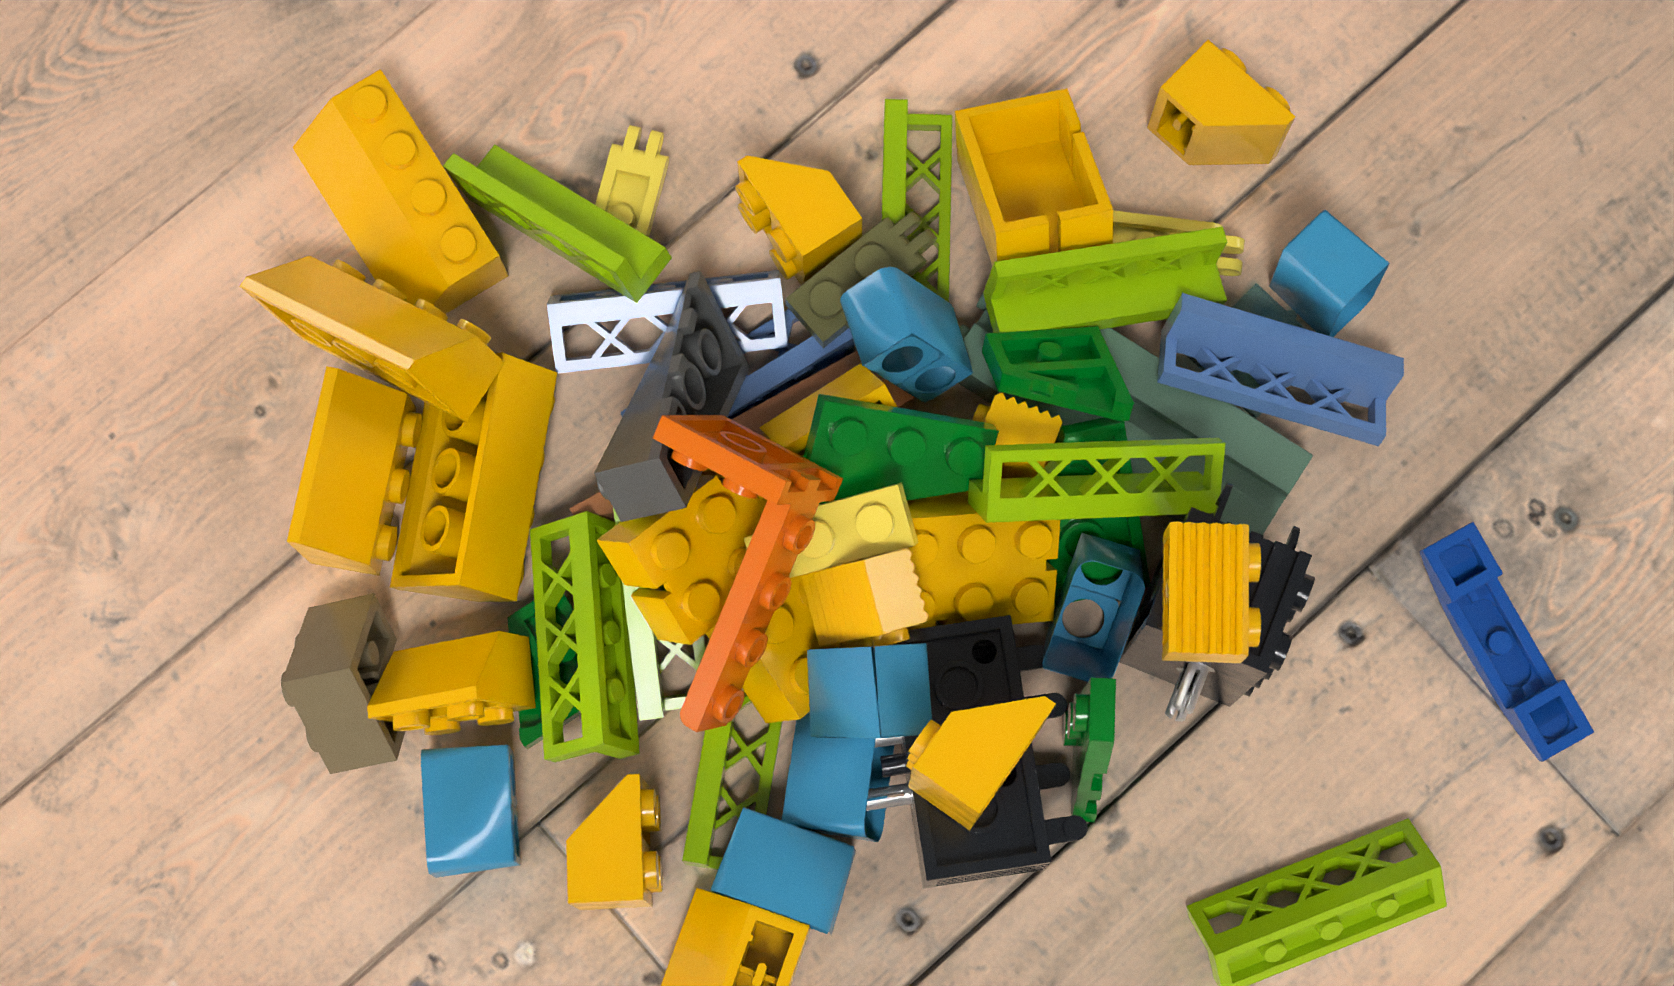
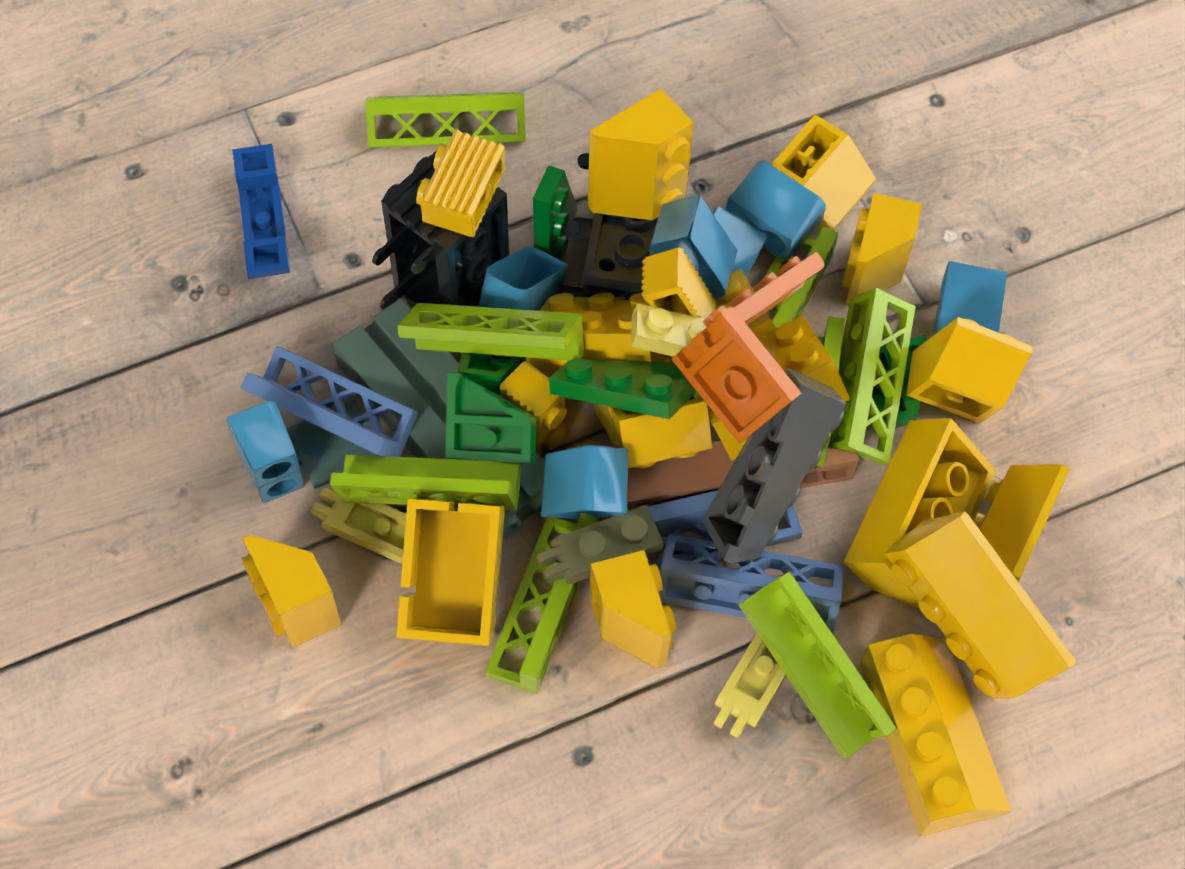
camera: 165 degrees left, 15 degrees down
(333, 679) = (1044, 404): dark tan brick -> none

